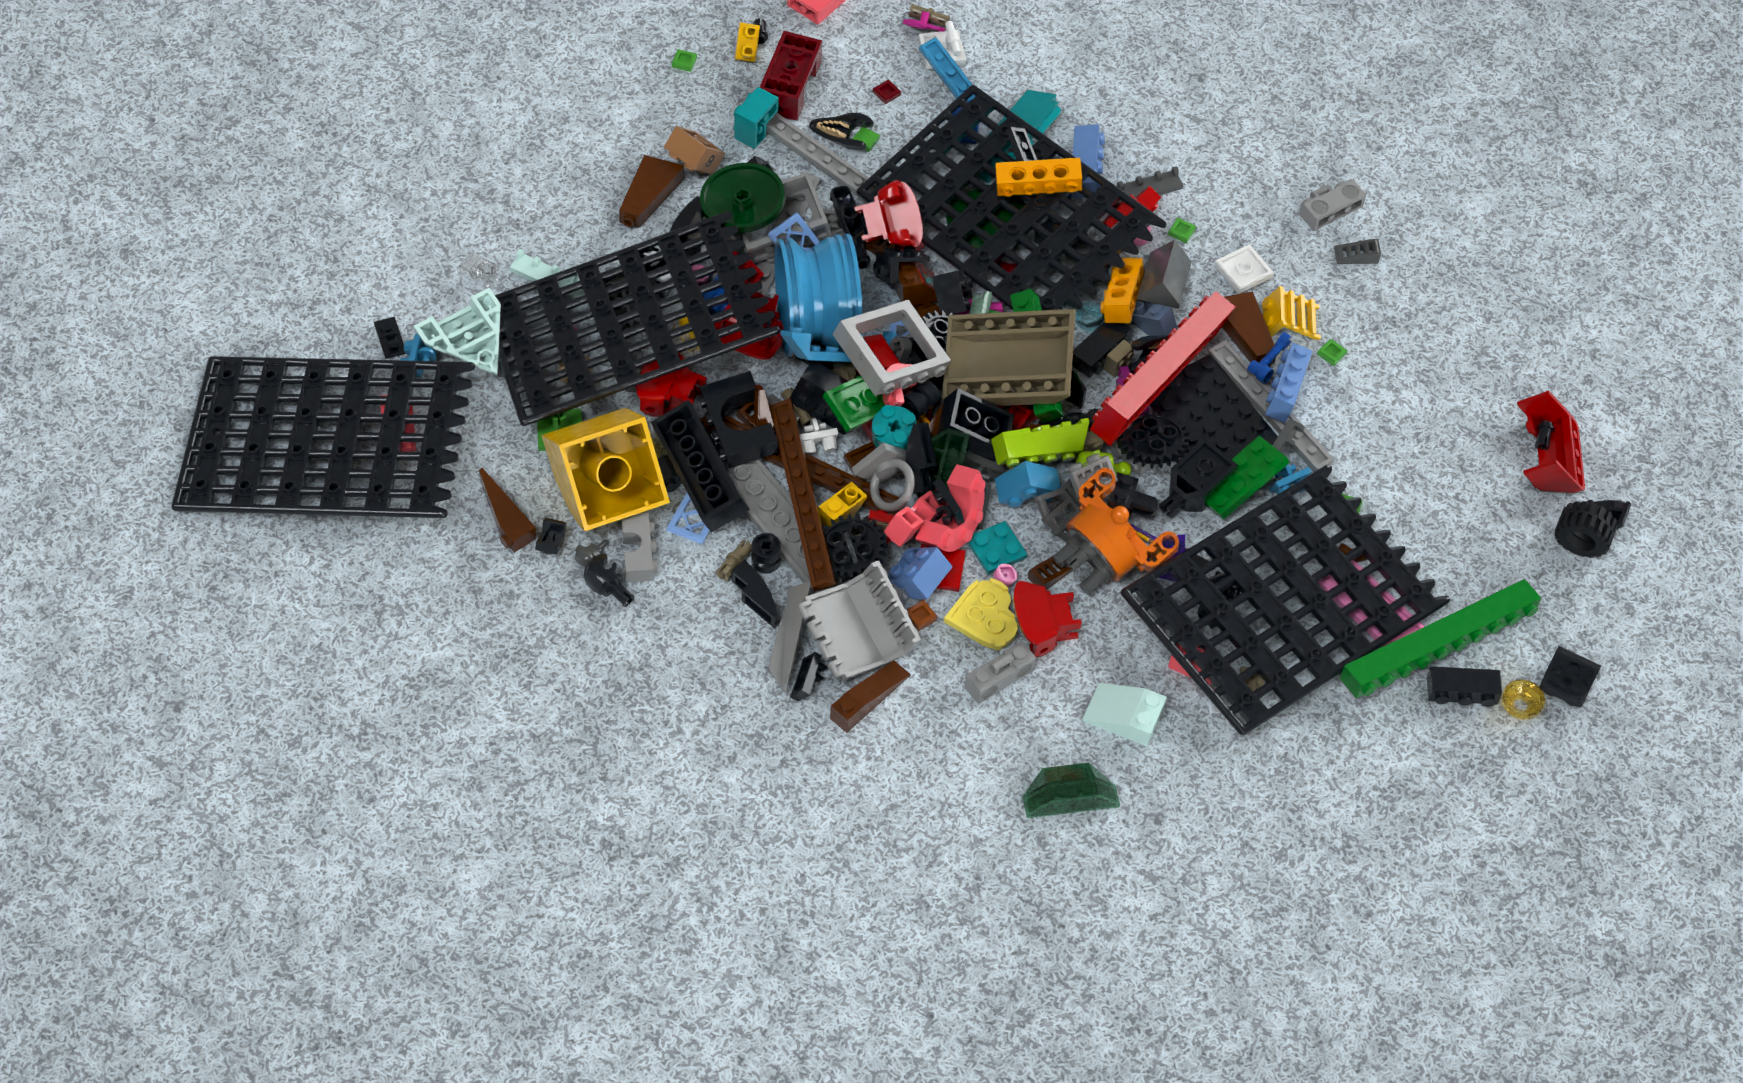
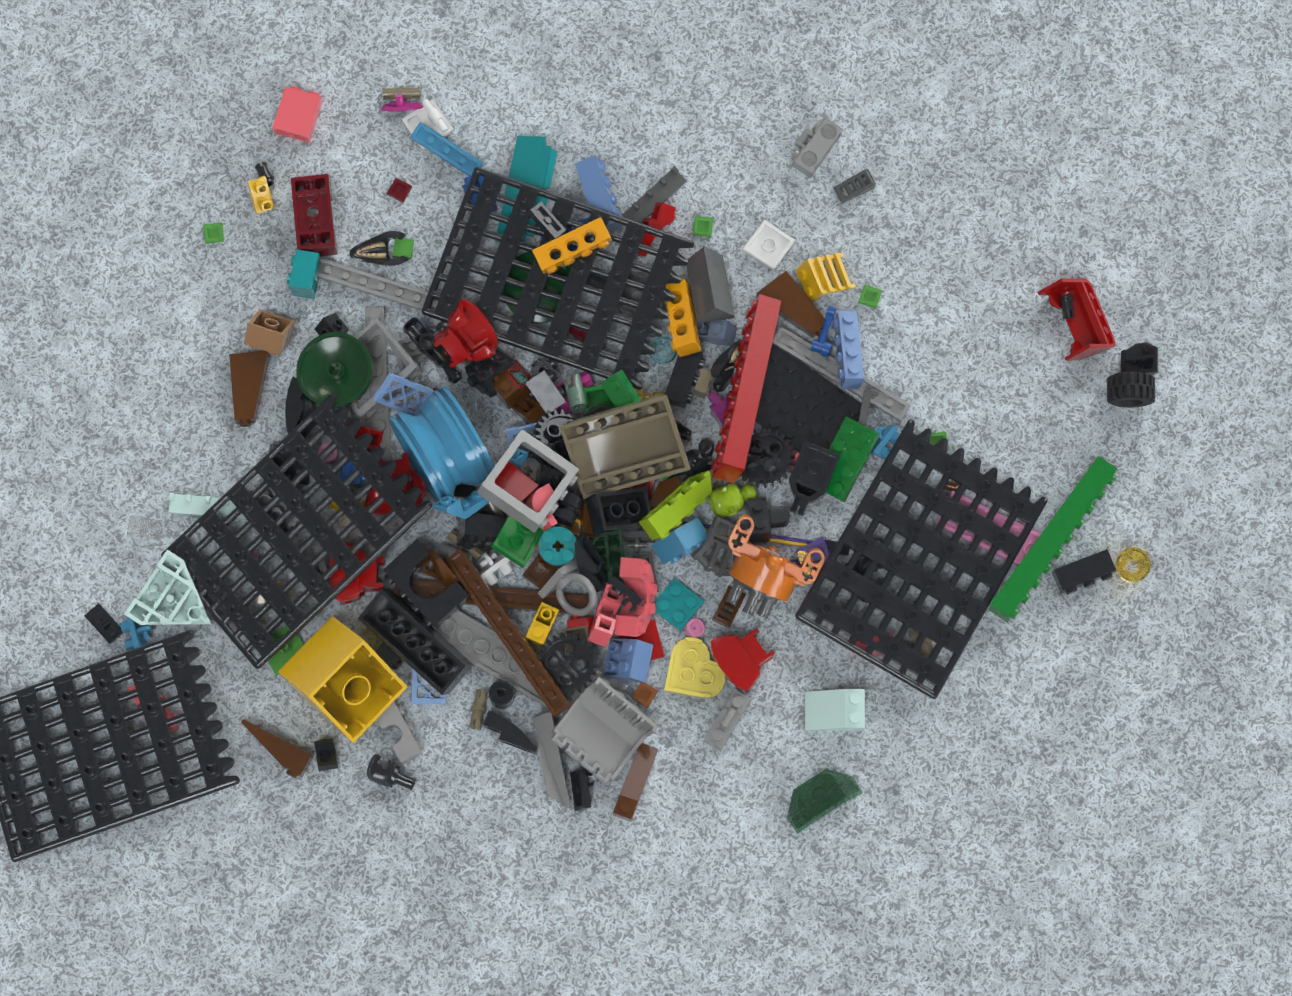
camera: 20 degrees left, 20 degrees up
(586, 554) = (363, 755): dark grey piece -> none
(1080, 473) = (726, 514): light grey bracket -> none
(1569, 677) = (1161, 531): black bracket -> none

